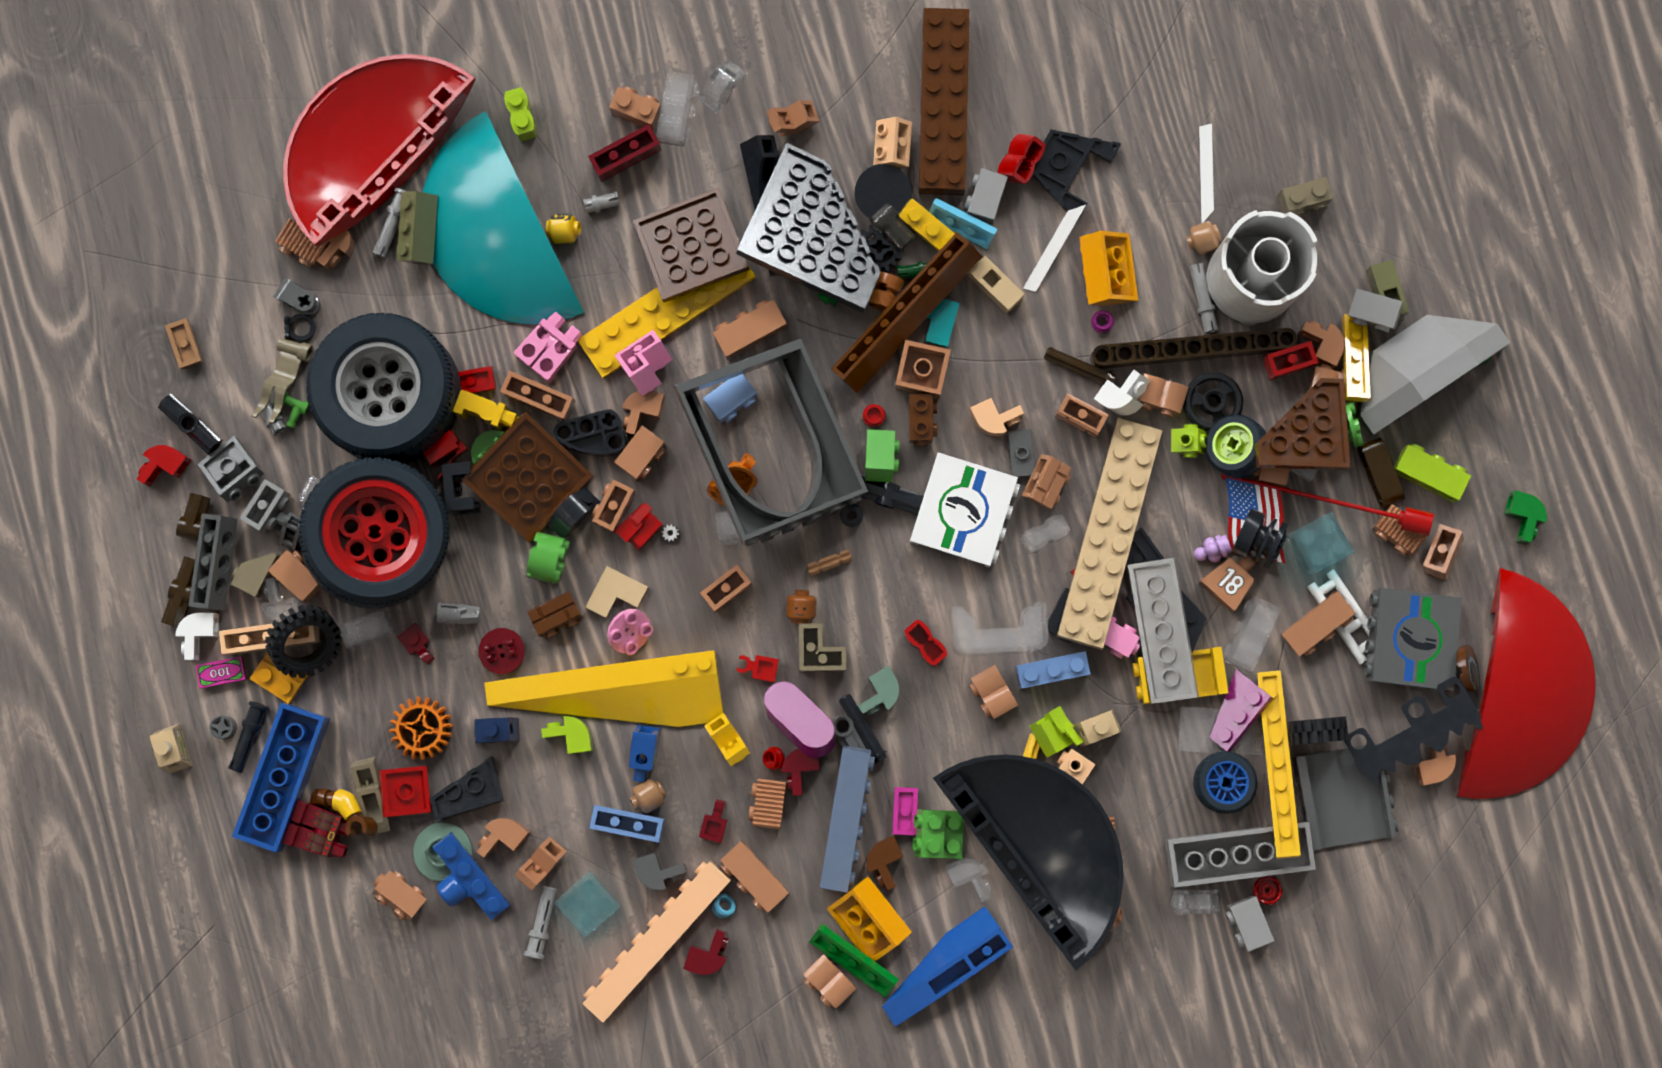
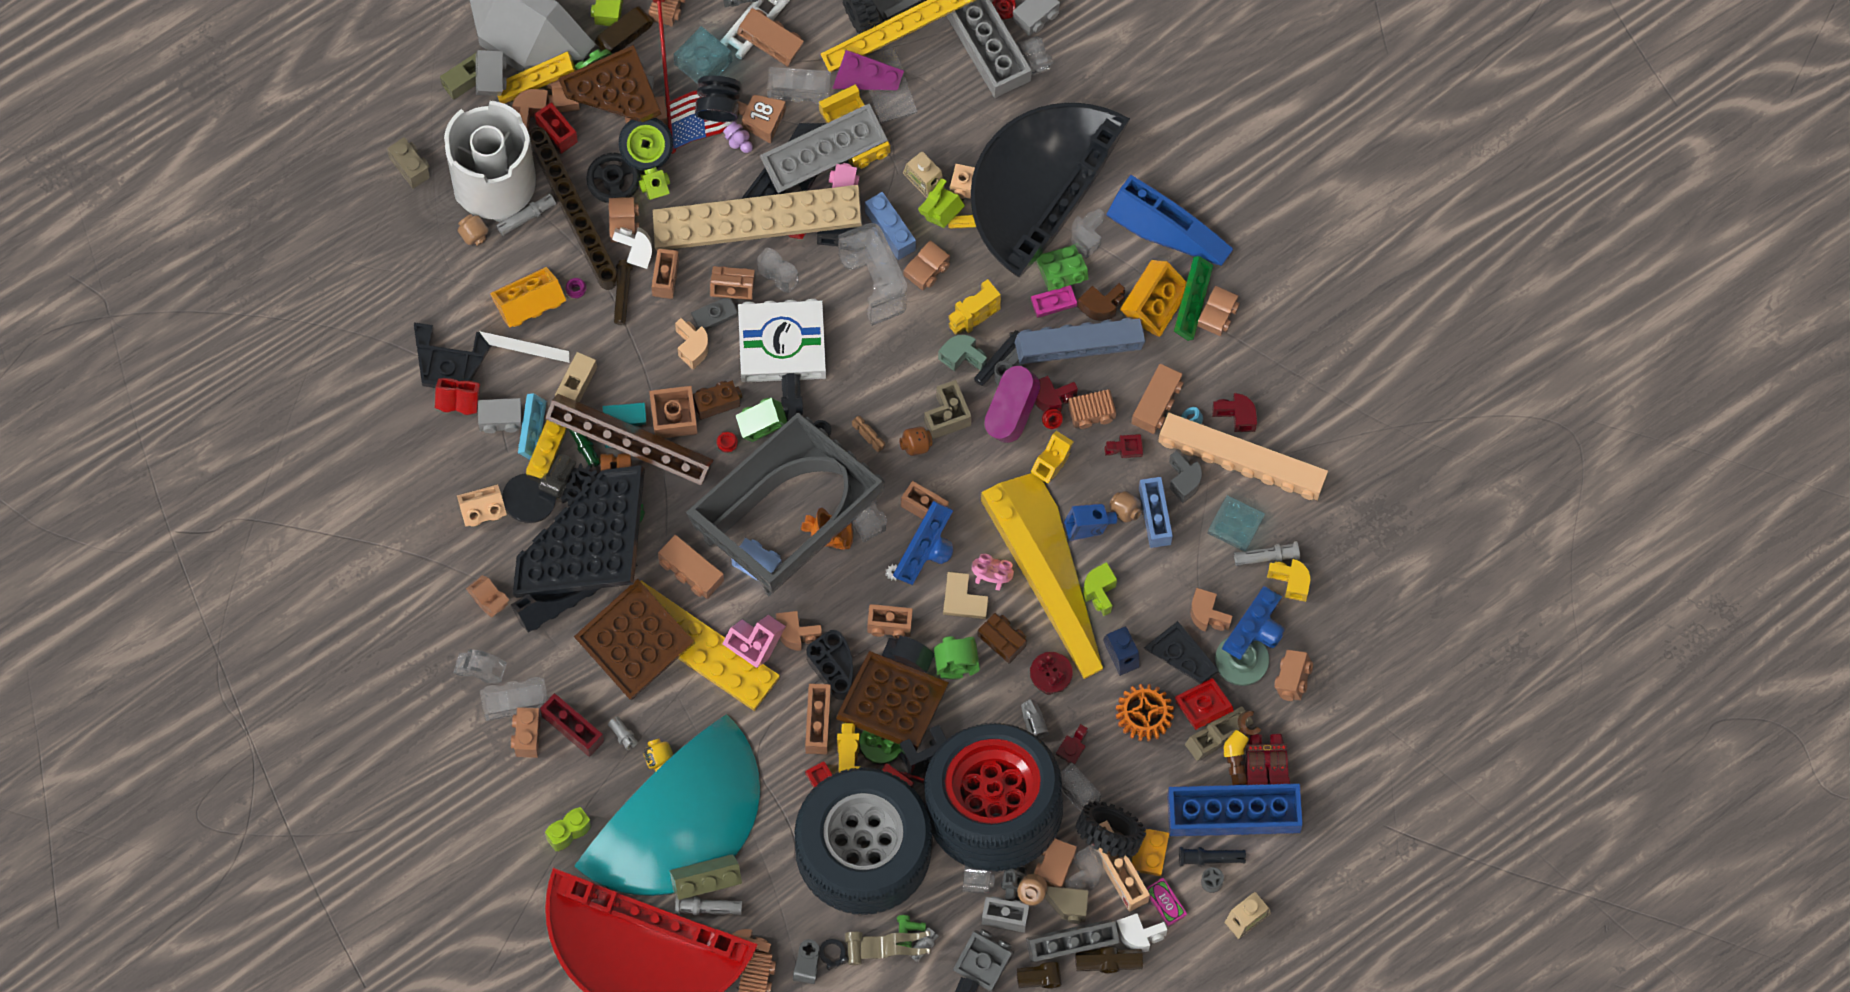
camera: 115 degrees left, 15 degrees down
(271, 538) = (1032, 889): none -> medium nougat head
(504, 943) = (1296, 576): none -> yellow brick
(541, 863) = (1217, 571): nougat brick -> none
(548, 348) = (771, 728): bright pink hips -> none
(639, 527) = (898, 593): red piece -> none
(641, 453) = (835, 617): nougat brick -> none
(678, 574) = (926, 544): none -> blue plate
(763, 667) = (980, 455): red plate -> none
(921, 638) = (909, 328): red brick -> none
(921, 721) = (975, 309): none -> yellow hips
(944, 101) = (428, 477): reddish brown brick -> none
(1206, 171) = (411, 251): white sticker -> none
(1240, 787) = (929, 65): wheel -> none

